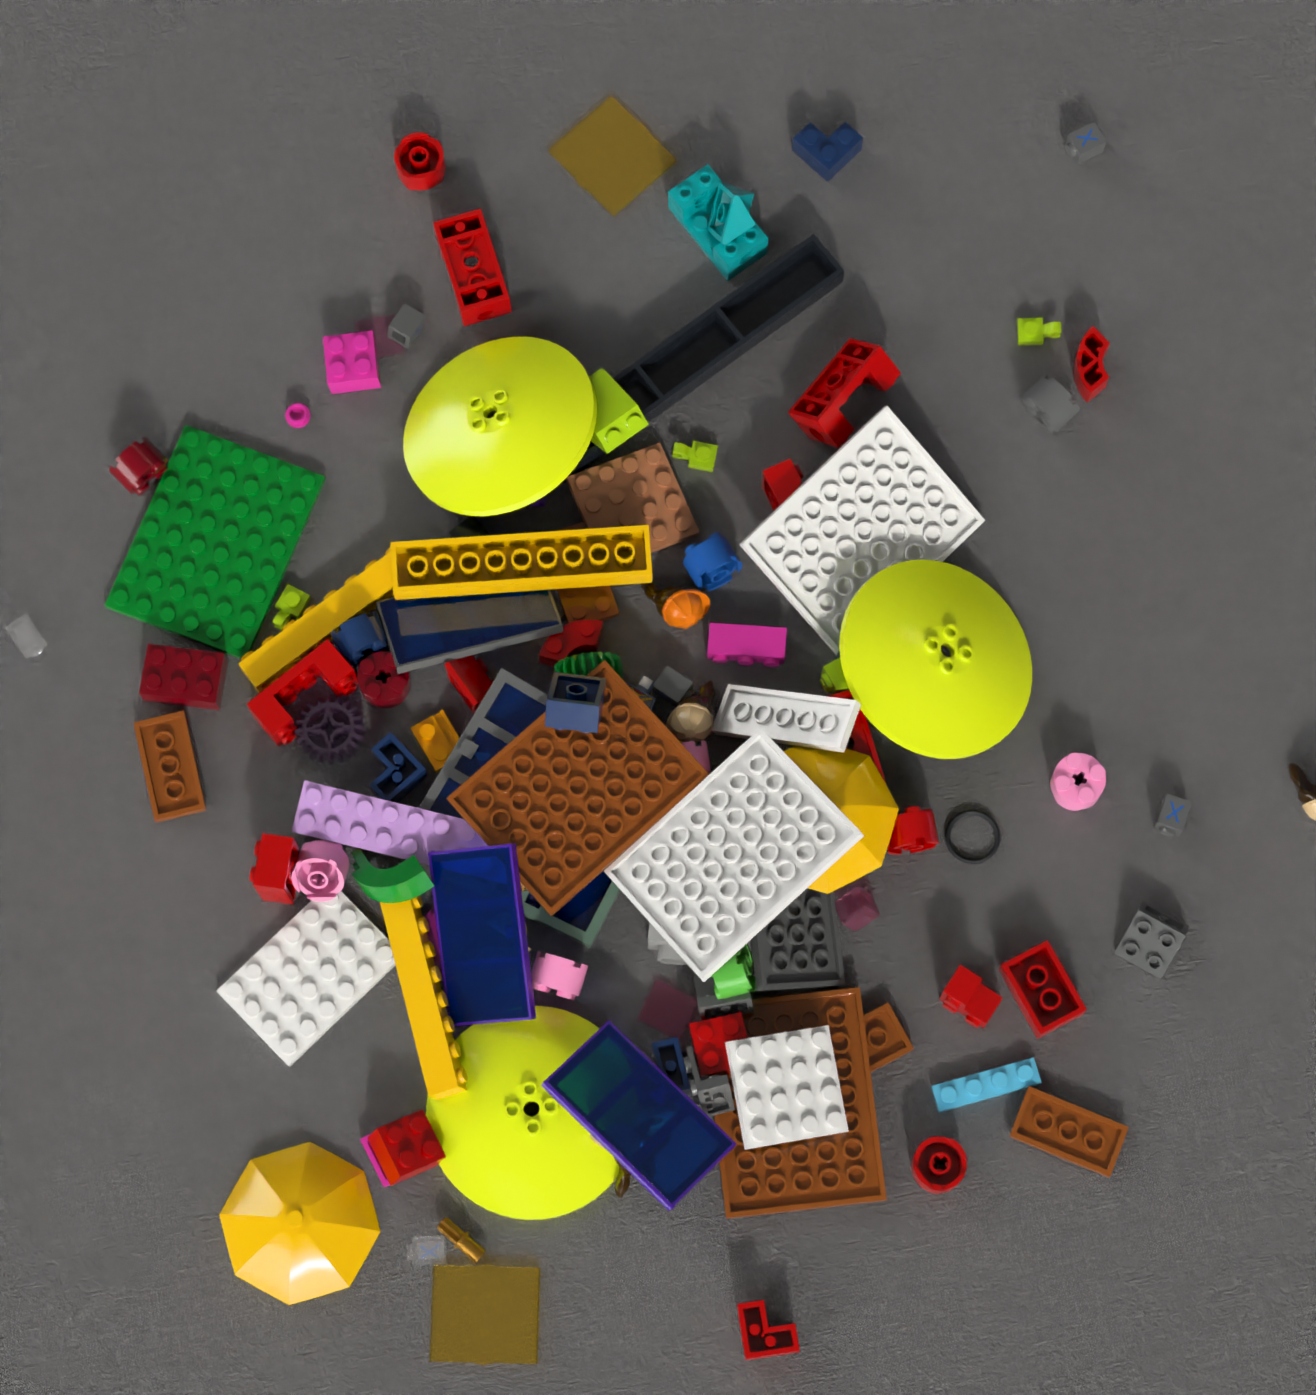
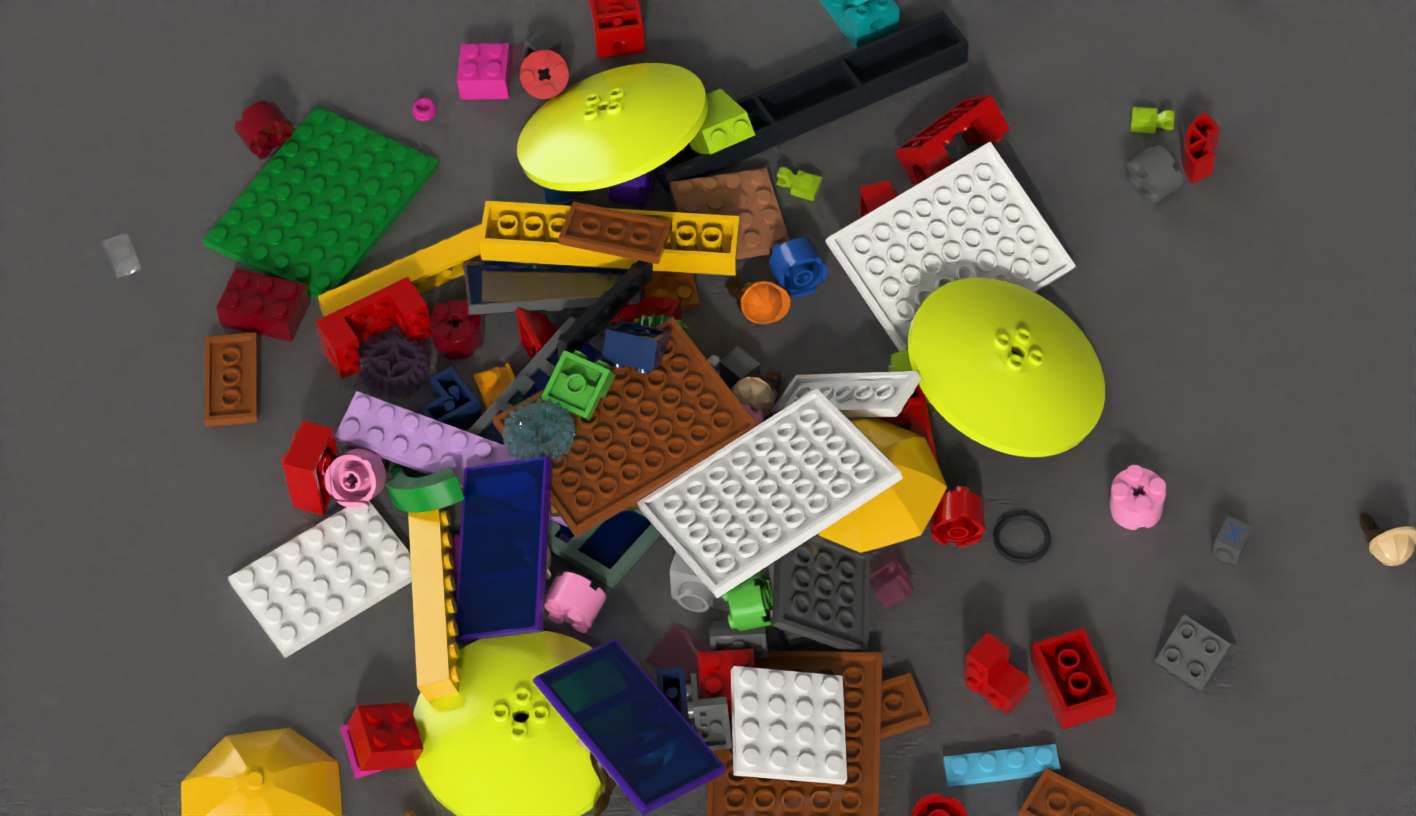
camera: 10 degrees right, 20 degrees down
(290, 604) = (379, 258): lime plate -> none
(360, 638) = (440, 284): dark blue brick -> none
(419, 375) = (540, 60): none -> brick
(509, 812) = (523, 428): none -> clear light blue gear
(526, 755) = (578, 383): none -> bright green plate
(529, 567) = (615, 232): none -> dark orange plate
(529, 665) = (605, 308): none -> black plate
(746, 644) = (820, 341): dark pink brick -> none

